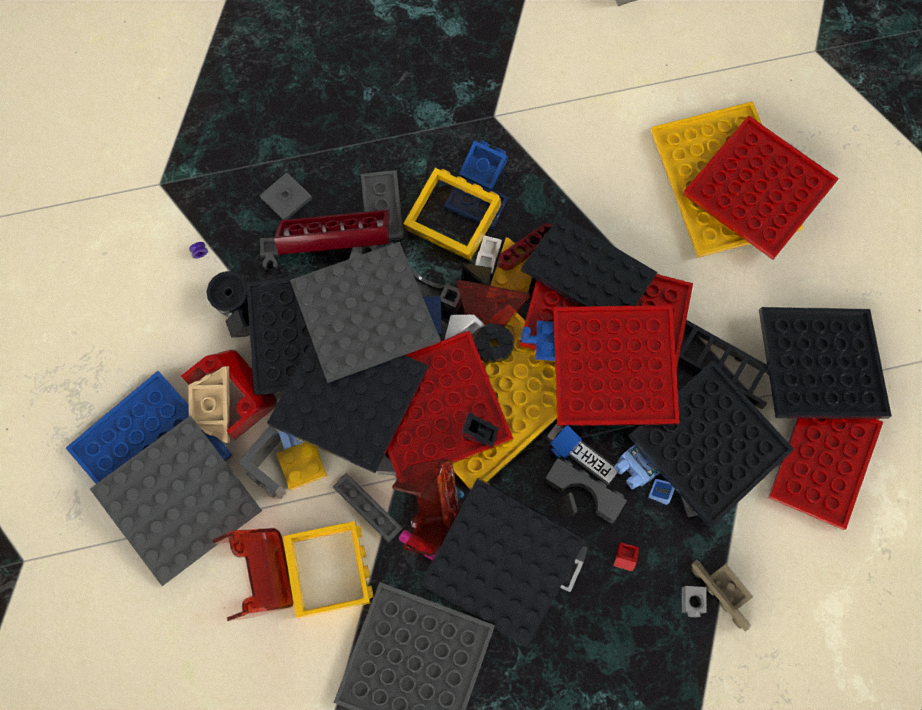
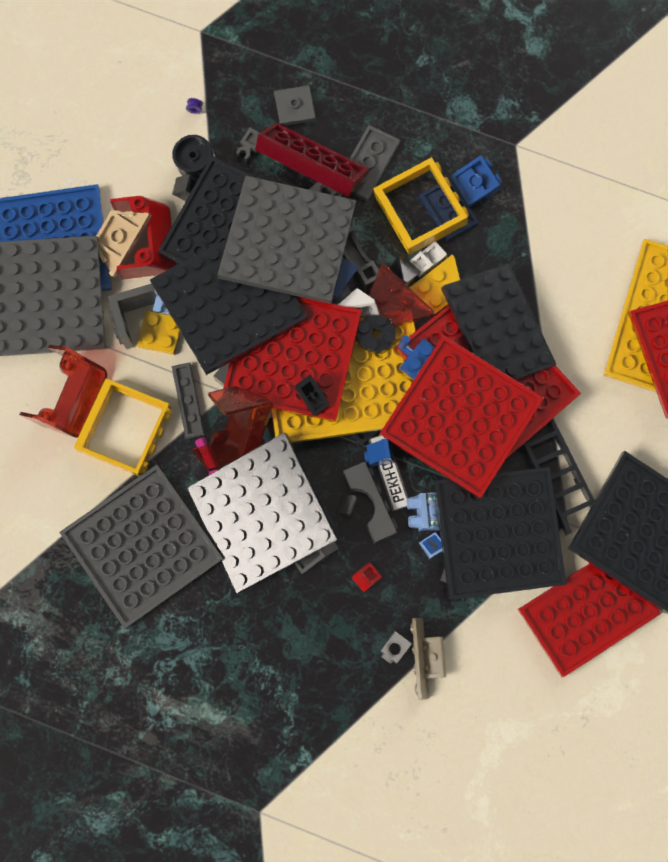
camera: 30 degrees right, 5 degrees up
(522, 244) = (461, 268): dark red beam -> none

